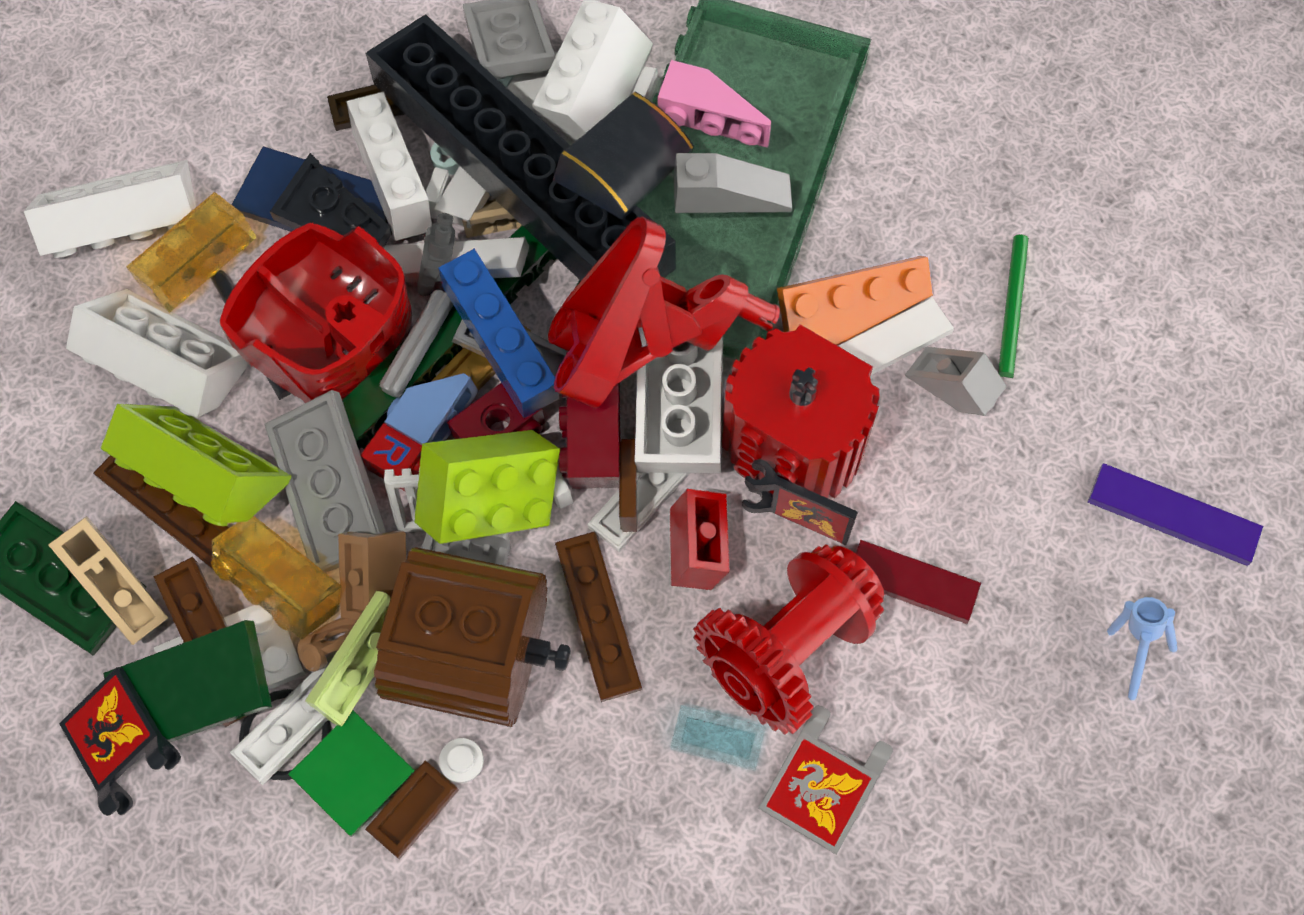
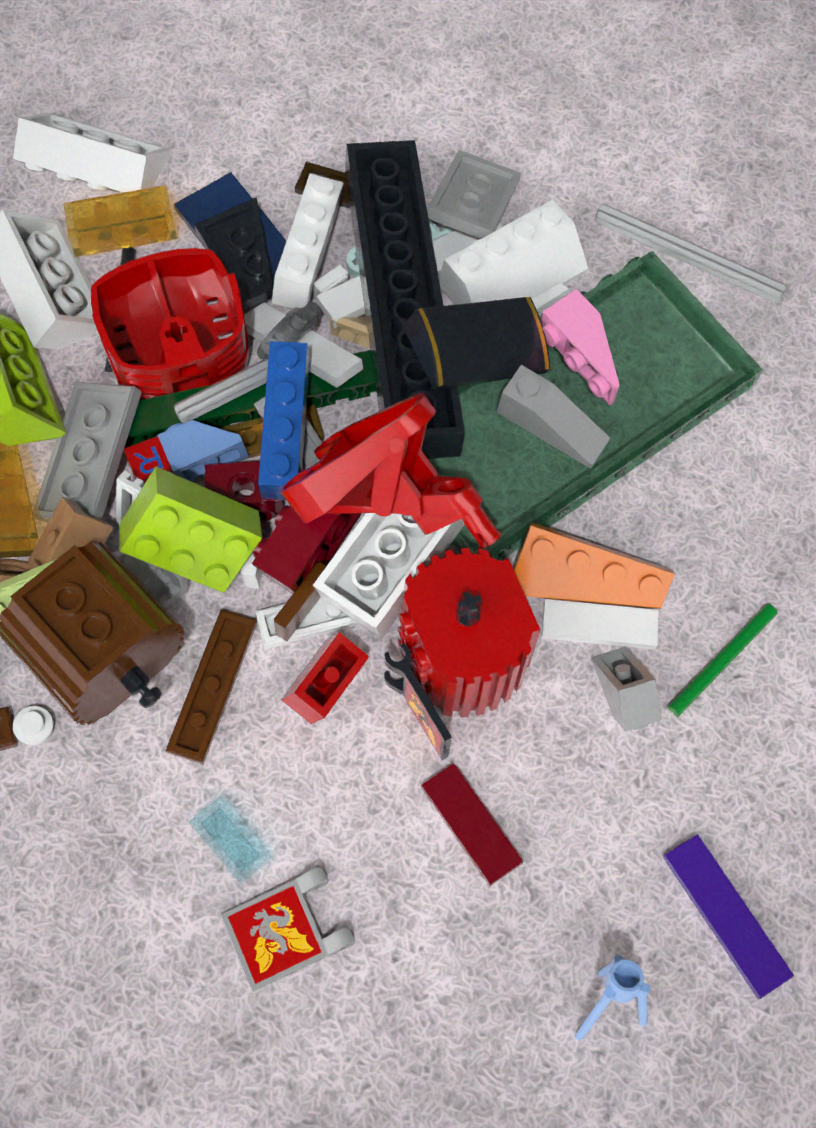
camera: 30 degrees right, 0 degrees up
(762, 663) = (289, 803): red piece -> none

